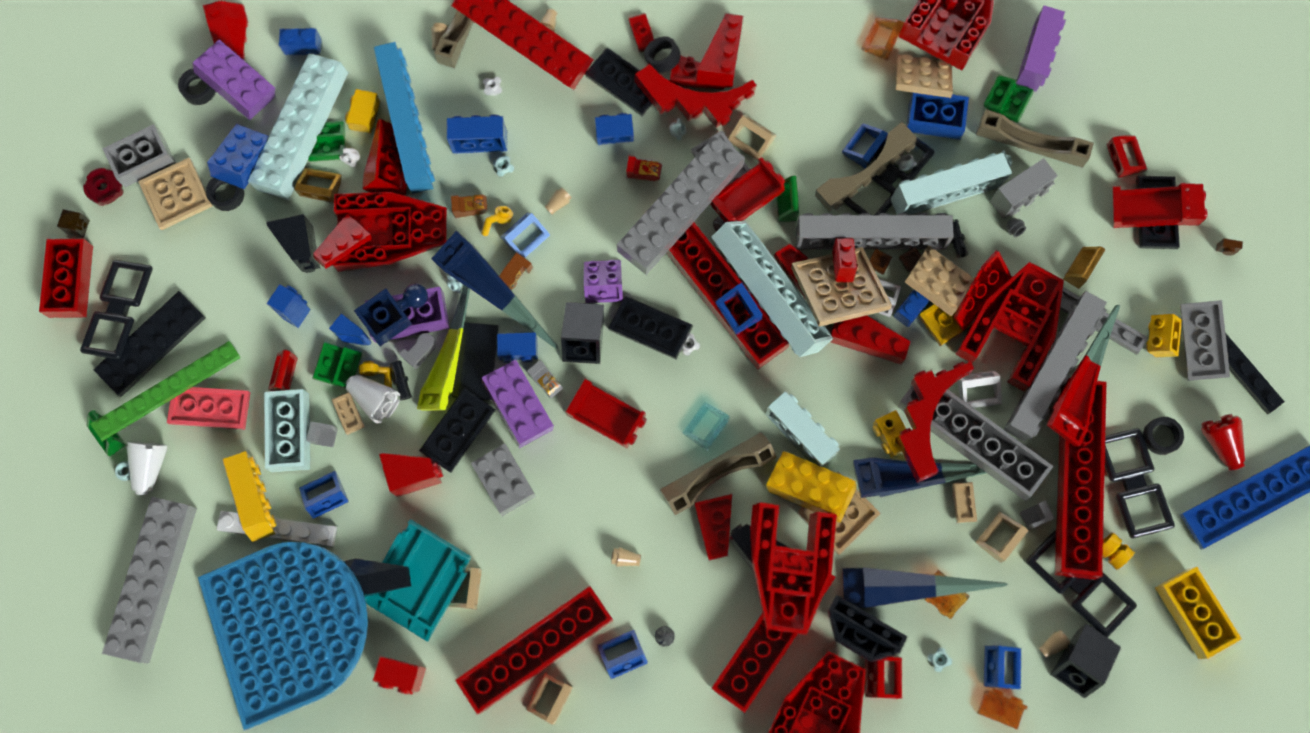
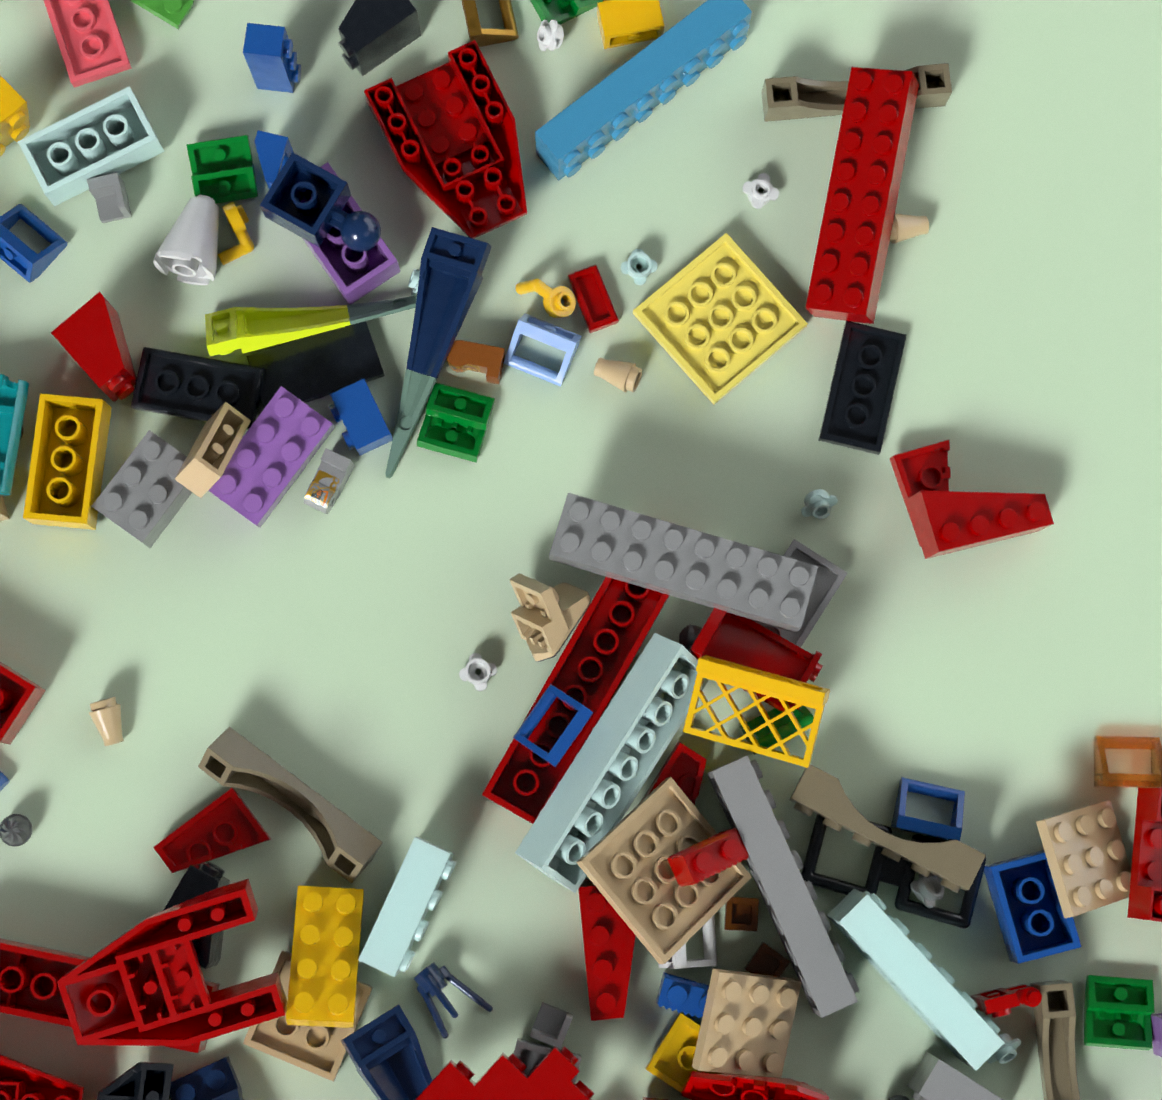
camera: 60 degrees right, 5 degrees up
(283, 371) = (177, 100): red tile -> none
(341, 241) = (402, 85): red wing -> none
(348, 413) = (156, 220): tan plate -> none
(383, 165) = (548, 89): red wedge -> none
(400, 380) = (238, 271): black pin -> none
(420, 351) = (292, 279): light grey leg -> none
(437, 32) = (809, 68): tan cone -> none
(466, 518) = (67, 461): none -> yellow brick
(469, 205) = (551, 243): dark orange leg -> none
(477, 134) = (666, 203): blue brick -> none
(500, 429) = (212, 450): none -> tan brick
(509, 197) = (593, 299): none -> red tile
(544, 298) = (455, 422): none -> green slope
(552, 136) = (720, 318): none -> light yellow plate
(582, 333) = (425, 503): black slope -> none
(603, 281) = (520, 497): medium lavender bracket -> none
(606, 414) = (315, 596): red panel -> none
(614, 129) = (774, 406): blue brick -> none
(641, 31) = (957, 378): red plate -> none
(643, 169) = (728, 479): red leg -> none
(650, 327) = (477, 603): black tile -> none
(656, 46) = (935, 407): black tyre -> none
(666, 95) = (869, 506): red arch -> none
(674, 292) = (547, 614): none -> tan piece
(715, 431) = (357, 772): clear light blue tile -> none
(756, 128) = (875, 626): tan tile -> none
(763, 192) = (764, 683): none -> yellow fence
(848, 437) = (432, 983): none -> dark blue plant
(889, 434) = (464, 1047): yellow brick -> none
(898, 384) = (551, 1025): none -> light grey panel
(958, 240) = (835, 1025): black pin -> none
(981, 147) = (1001, 1000): none -> red plate

